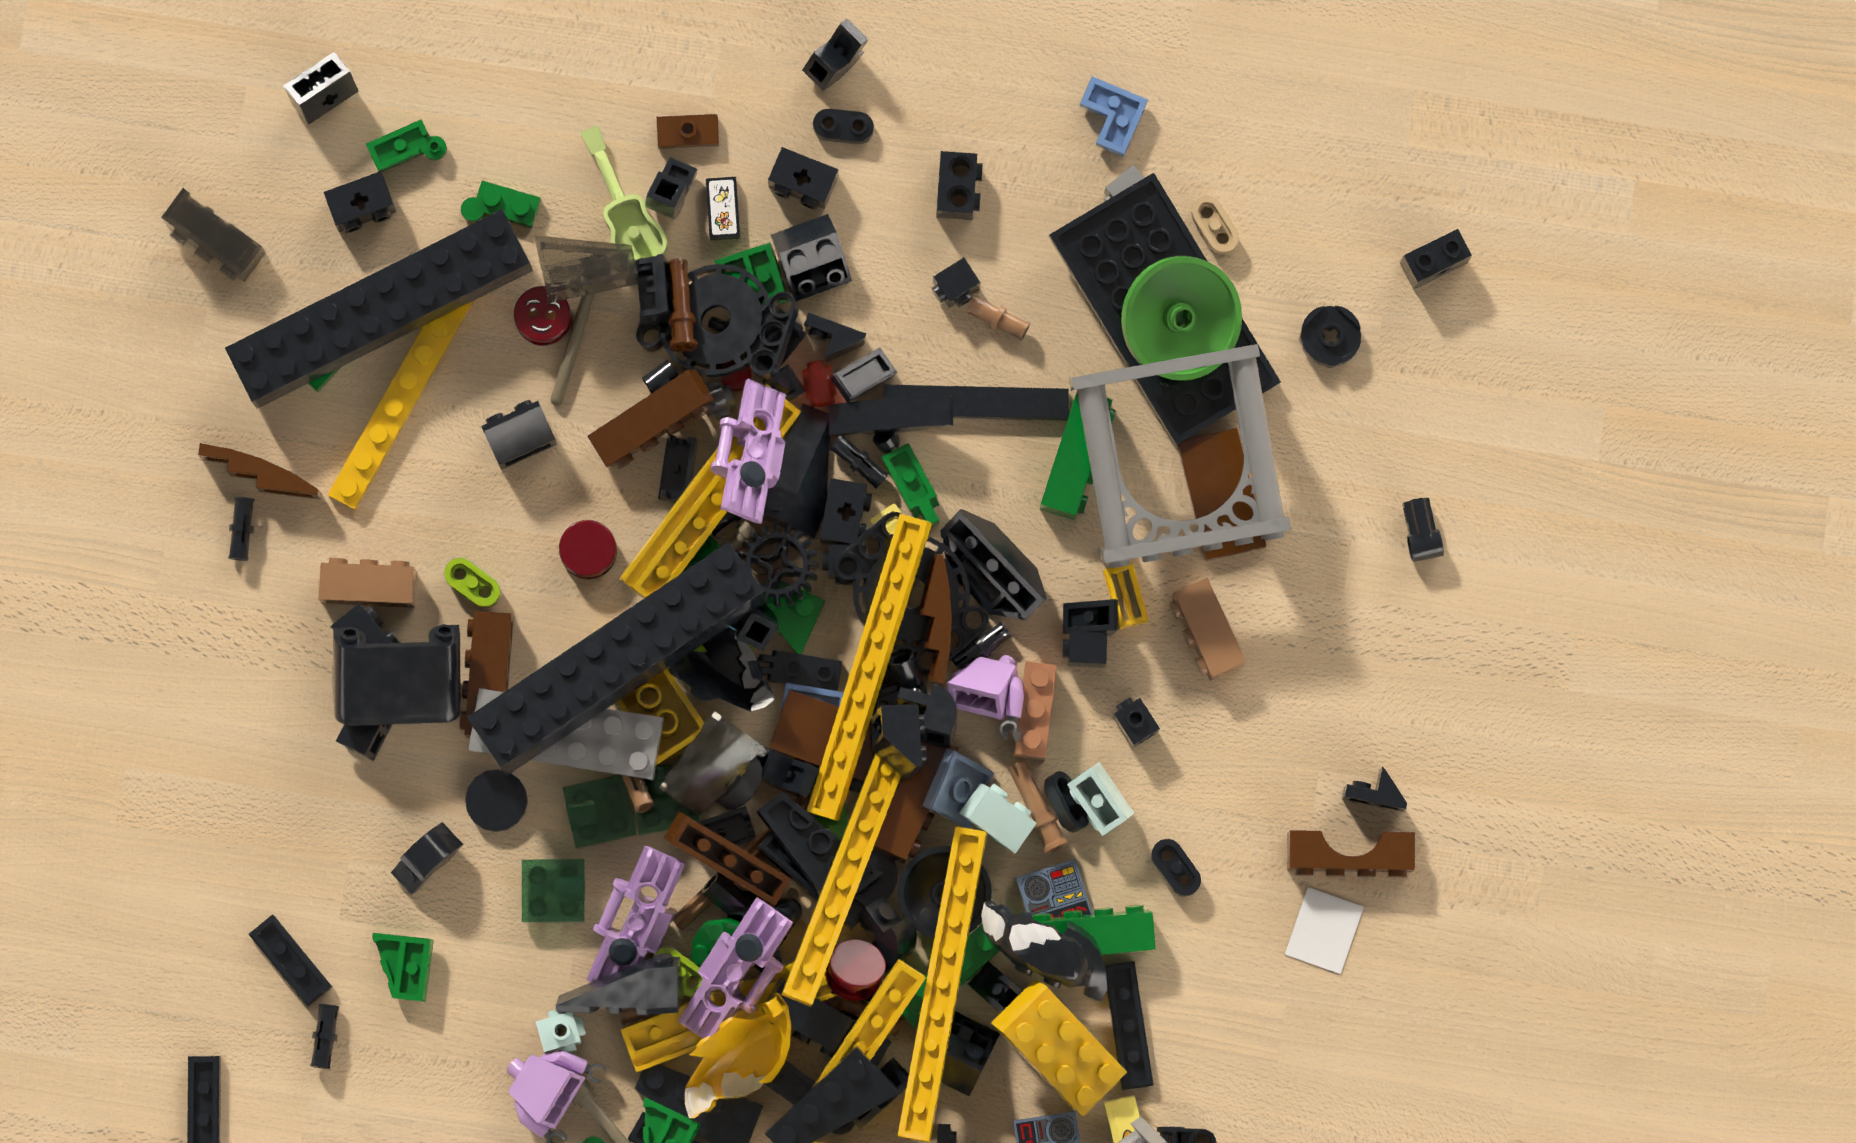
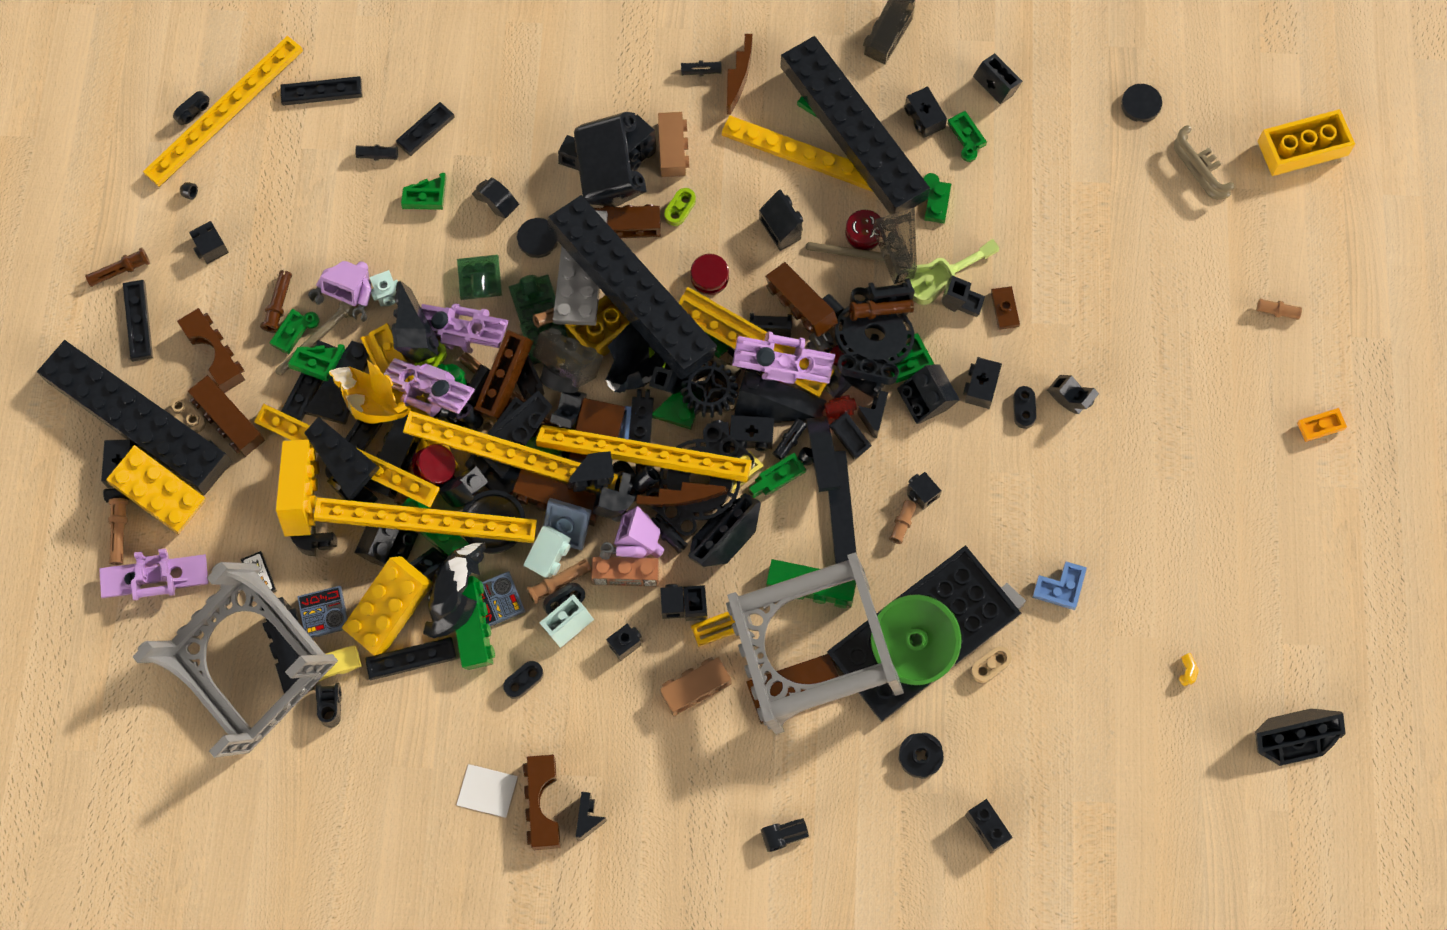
camera: 90 degrees right, 10 degrees down
(722, 208) = (955, 335): tile -> none
(952, 185) = (992, 478): black brick -> none

